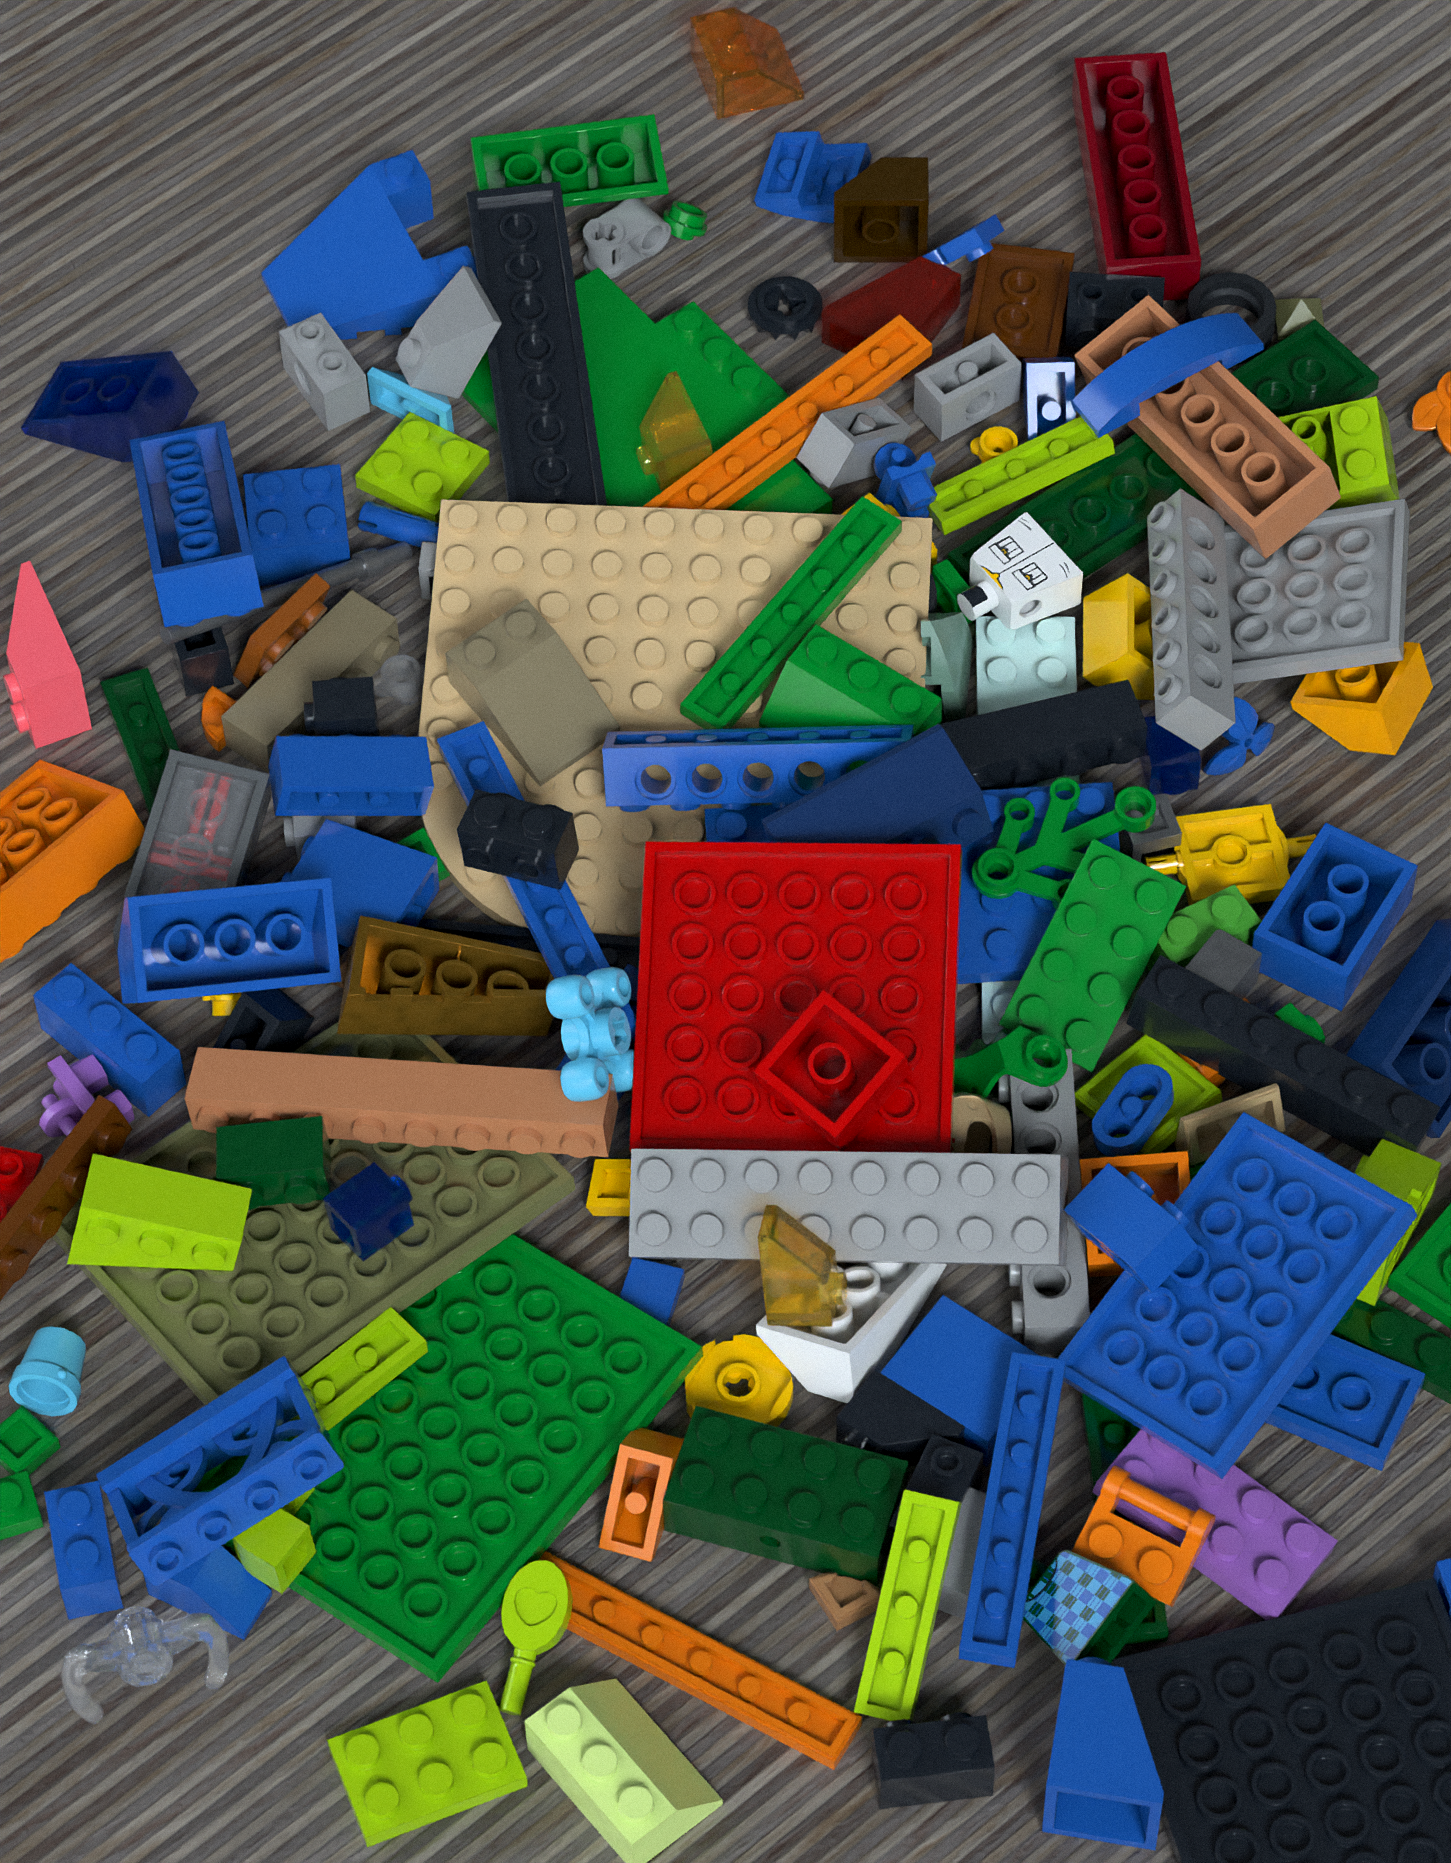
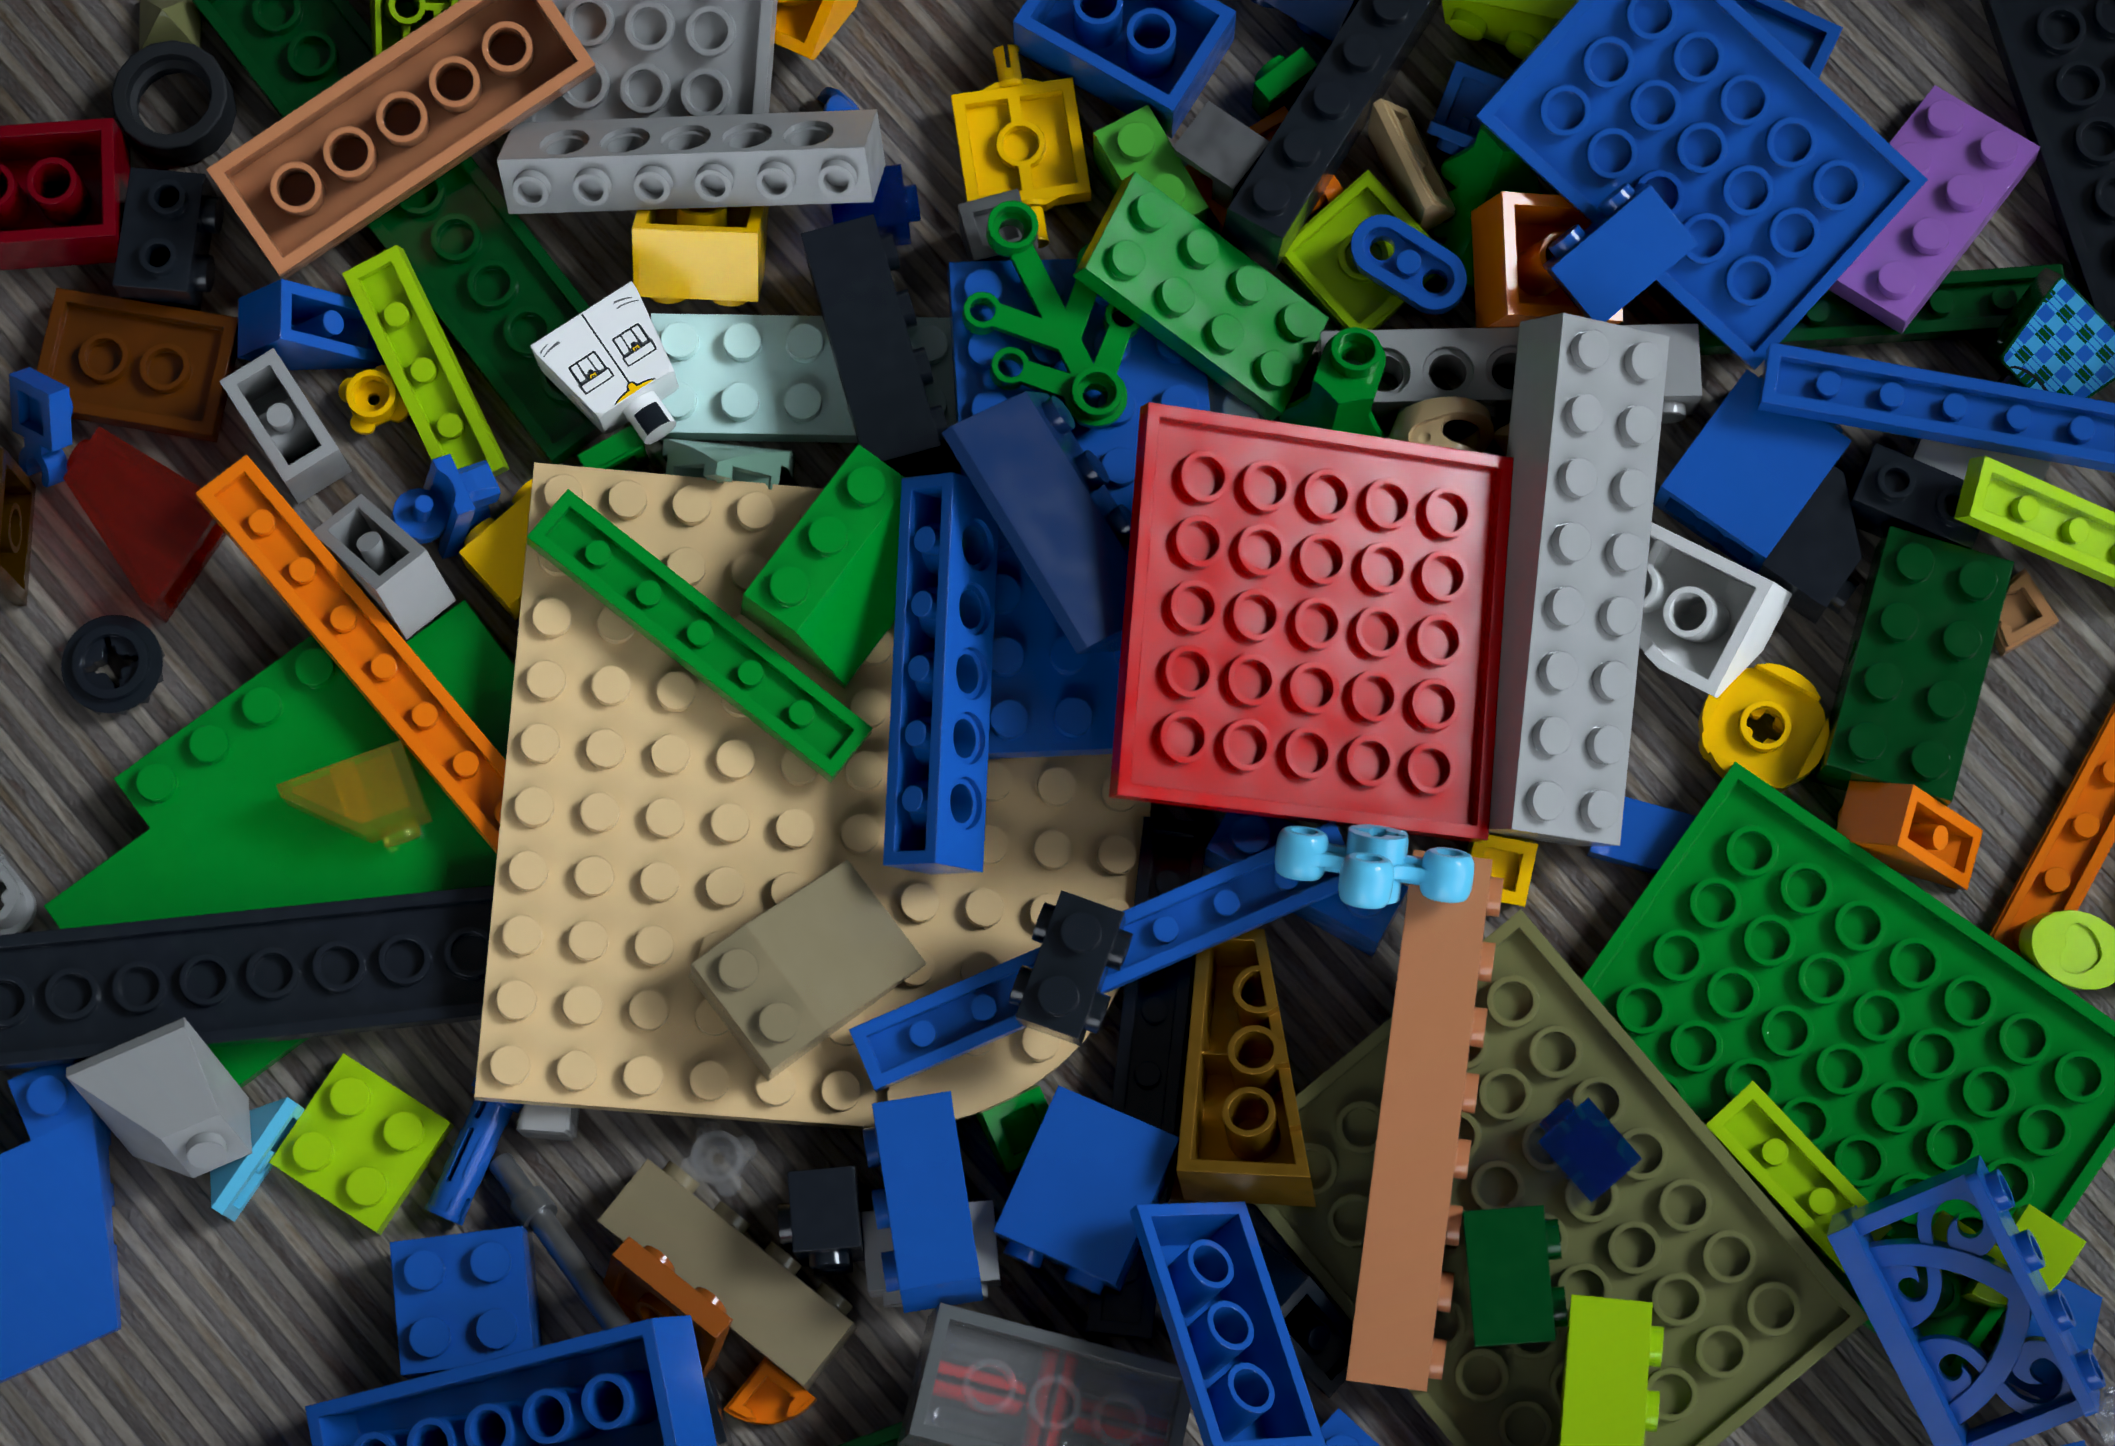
camera: 90 degrees left, 20 degrees up
(324, 371) = (198, 1279): light grey brick -> none
(798, 1273) = (1673, 635): clear yellow slope -> none
(832, 1070) = (1443, 574): red brick -> none
(1134, 1552) = (1987, 286): orange plate -> none
(1161, 363) = (333, 155): blue slope -> none

